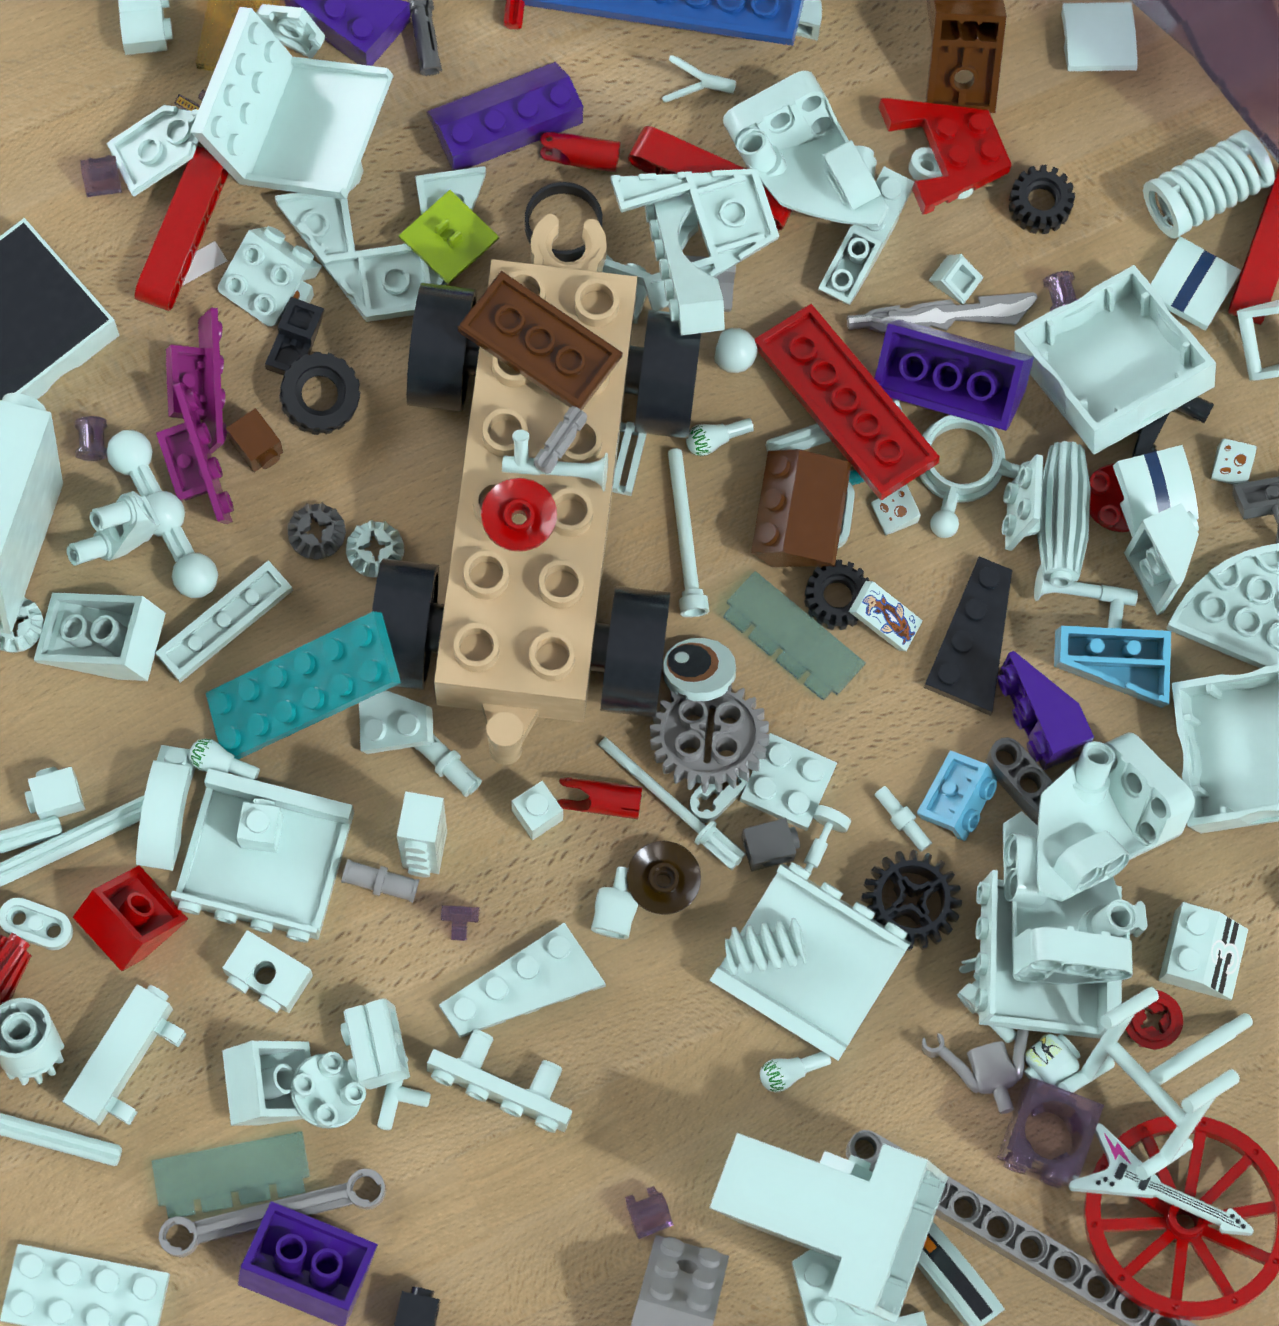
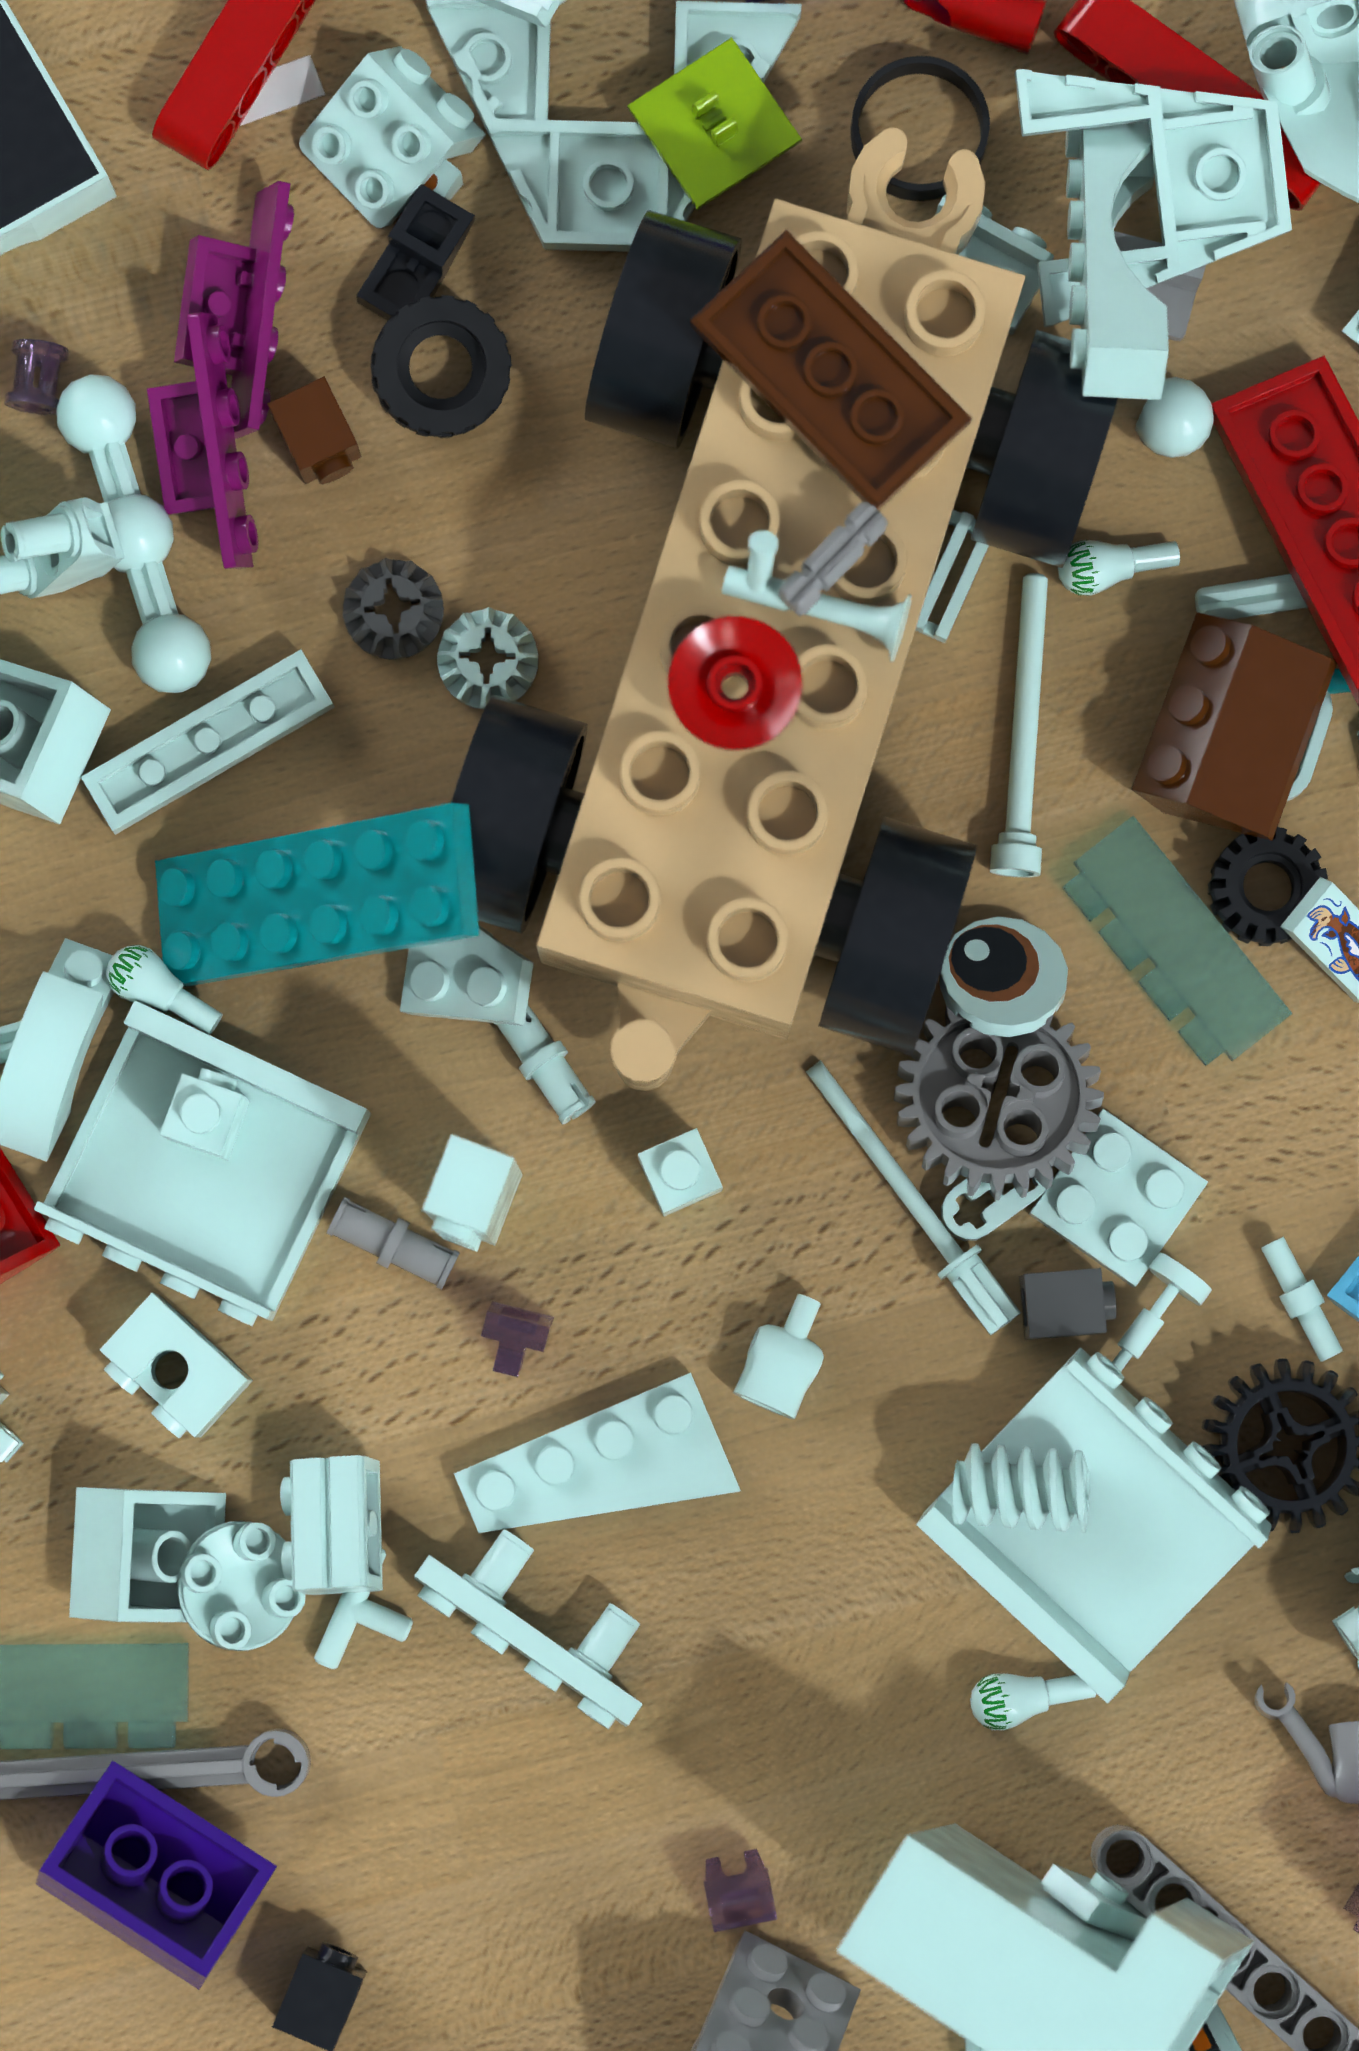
camera: 15 degrees right, 10 degrees up
(604, 798) = (795, 1169): red piece -> none
(669, 860) = (907, 1322): dark brown dish -> none

